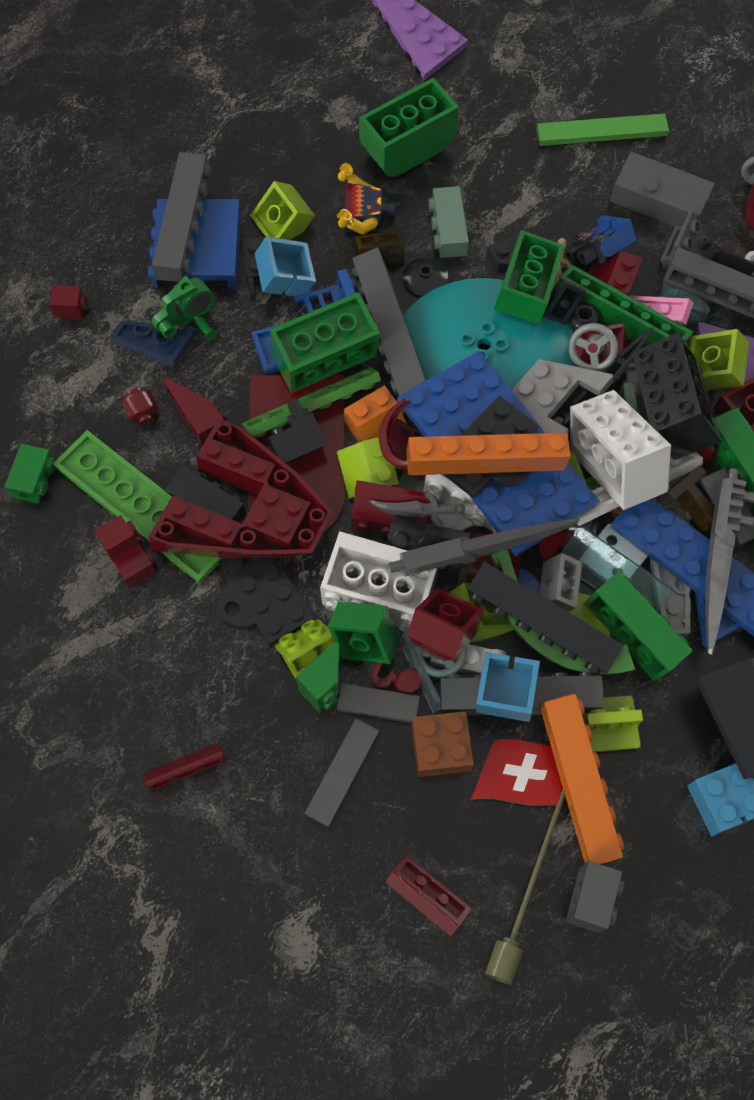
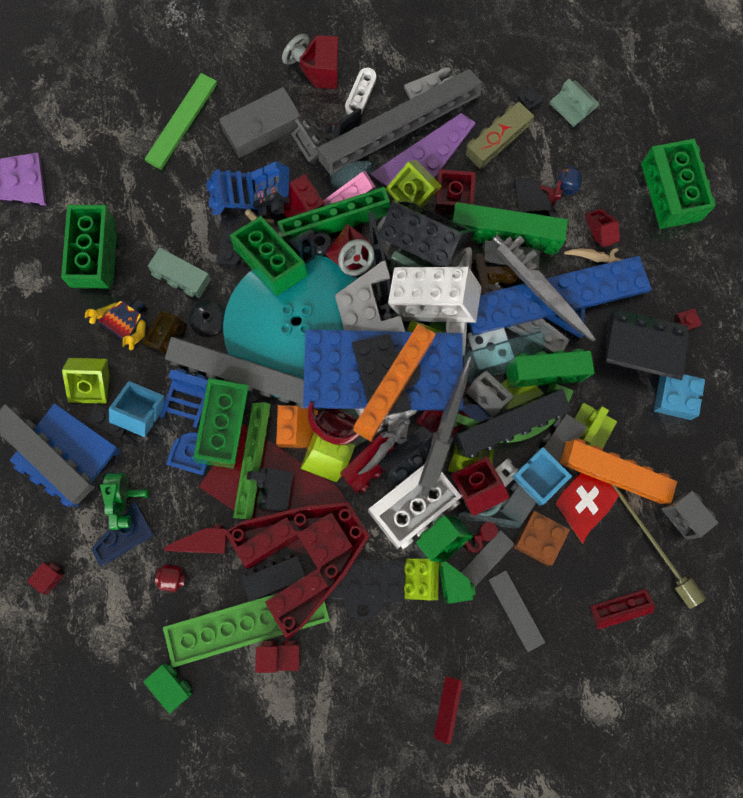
camera: 60 degrees left, 10 degrees up
(563, 200) = (222, 193): none -> blue plate

